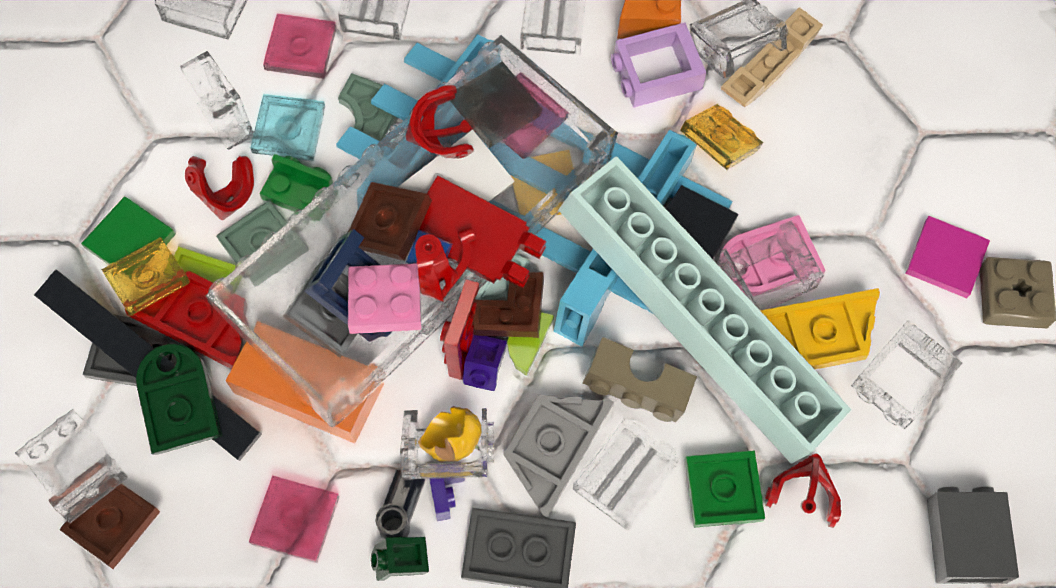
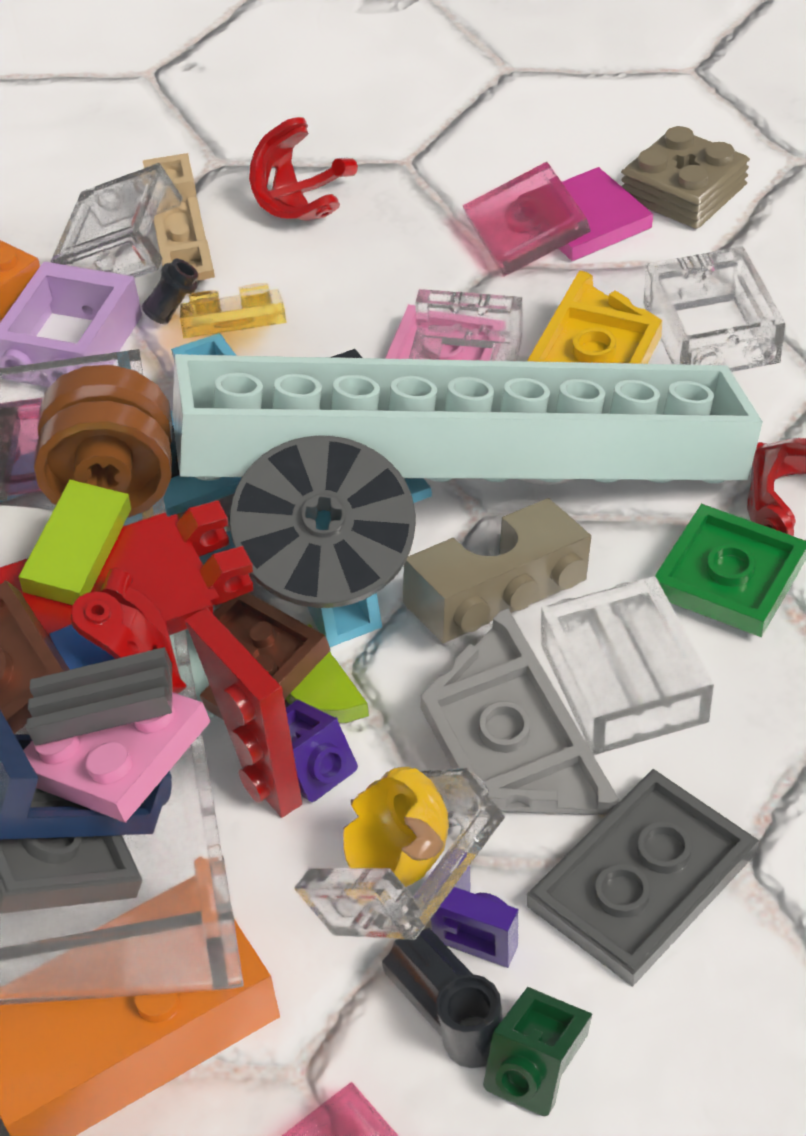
camera: 50 degrees left, 20 degrees down
(405, 274) = (100, 696): none -> dark grey tile
(476, 200) = (75, 542): none -> lime tile
(542, 166) = (107, 432): none -> dark orange wheel
(605, 299) = (367, 531): none -> dark grey piece
(721, 94) = (175, 283): none -> black pin
(846, 90) = (287, 196): none -> red helmet
(911, 230) = (526, 218): none -> clear pink tile

